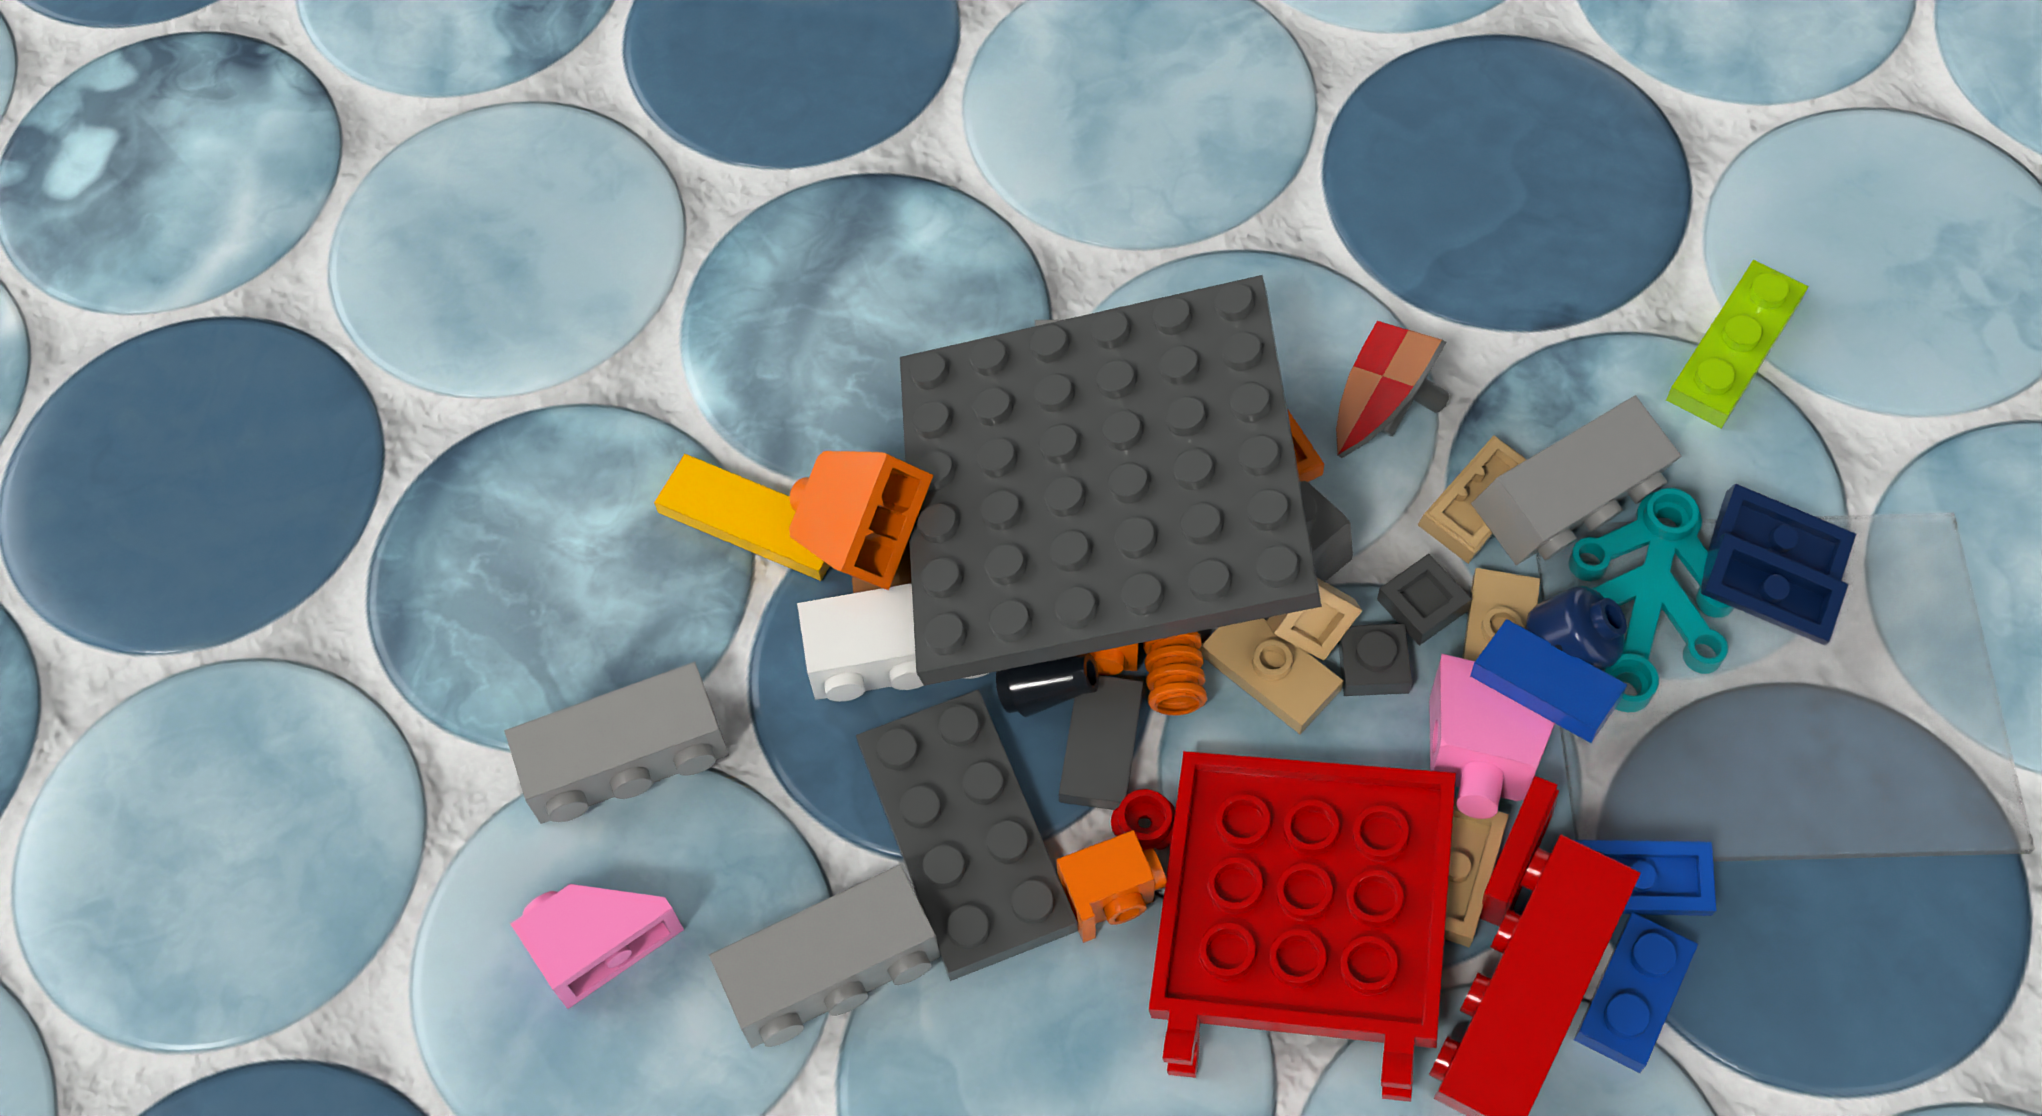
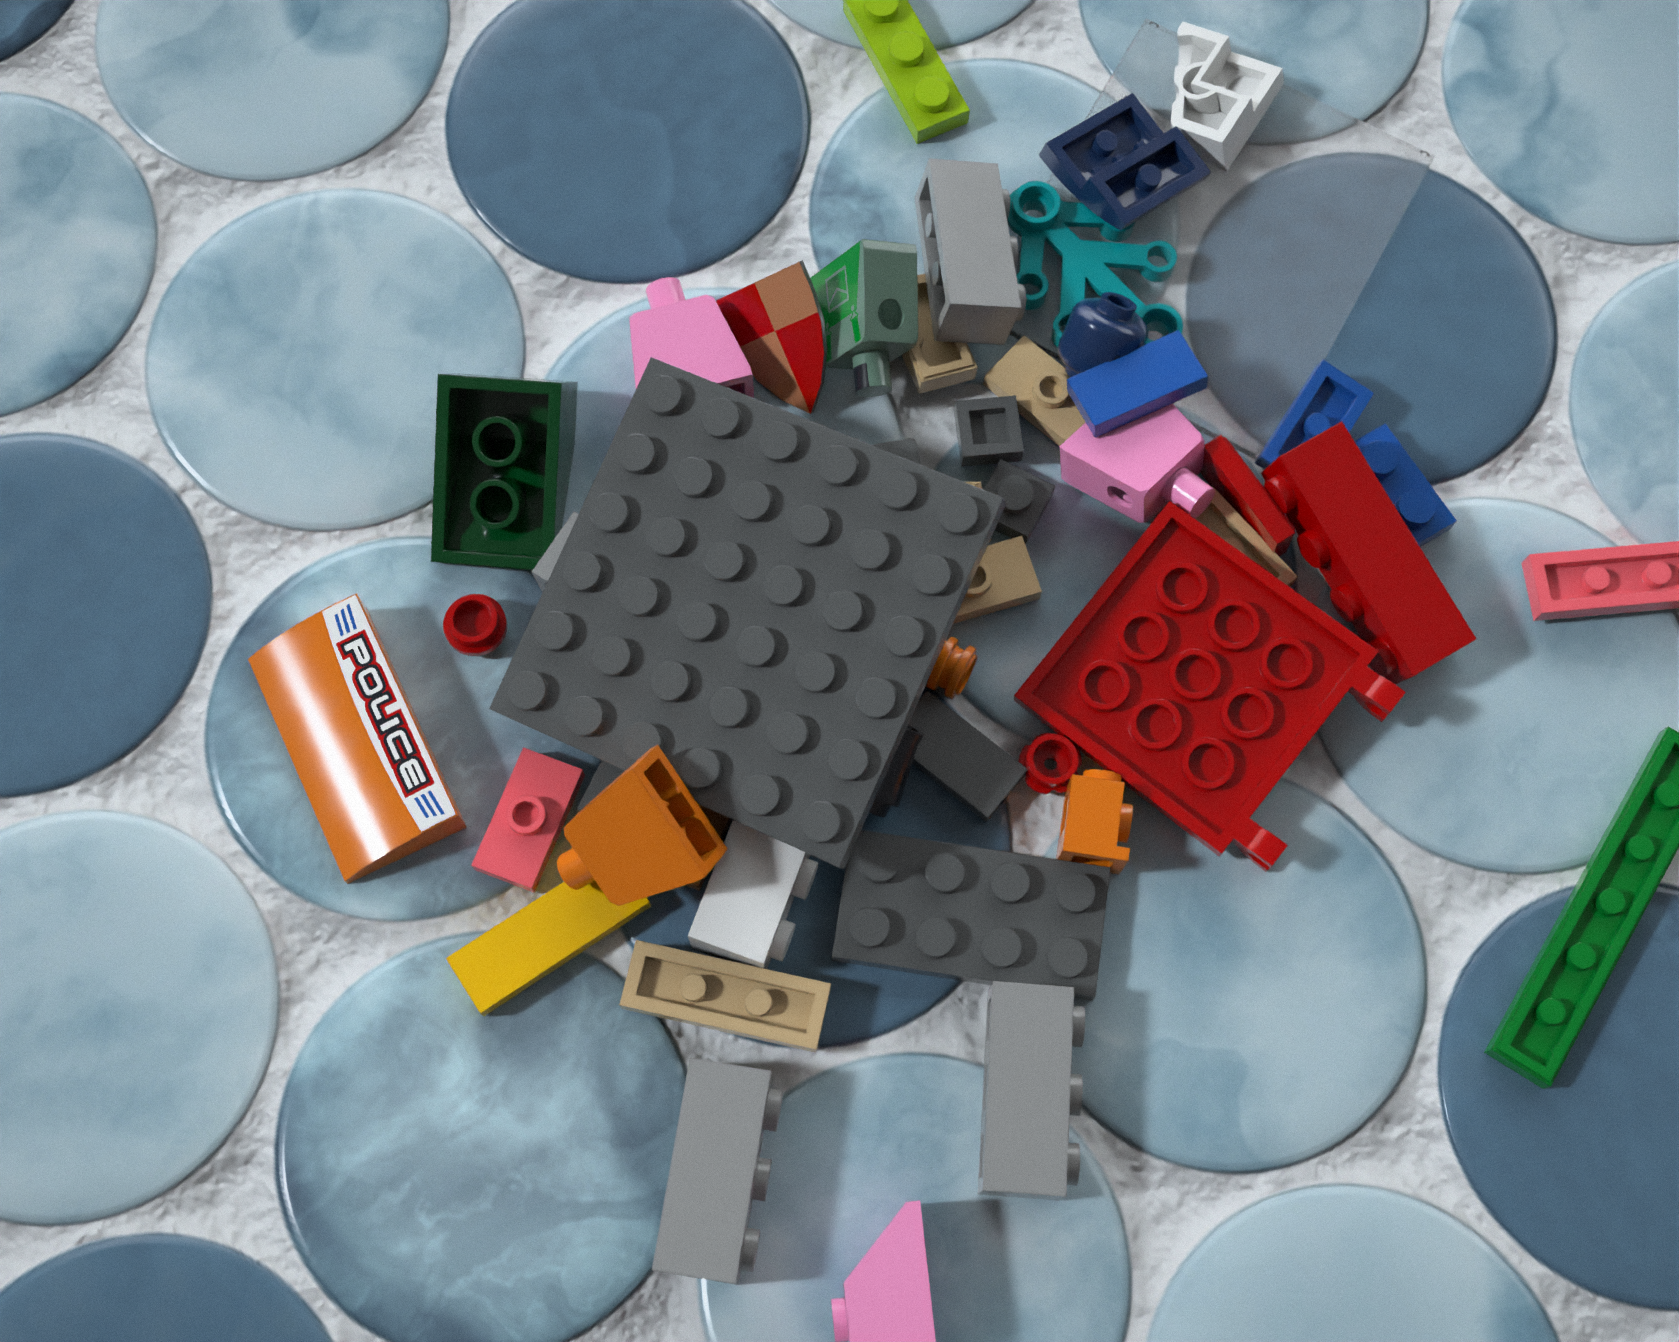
camera: 65 degrees left, 10 degrees up
(772, 674) = (725, 996): none -> tan plate
(801, 443) = (528, 820): none -> coral plate
(829, 296) = (355, 739): none -> orange slope
(974, 316) = (475, 625): none -> red plate
(1120, 248) = (500, 468): none -> dark green slope
(1321, 327) = (688, 336): none -> bright pink torso
(1451, 433) = (869, 310): none -> sand green torso
(1921, 612) = (1219, 94): none -> white slope

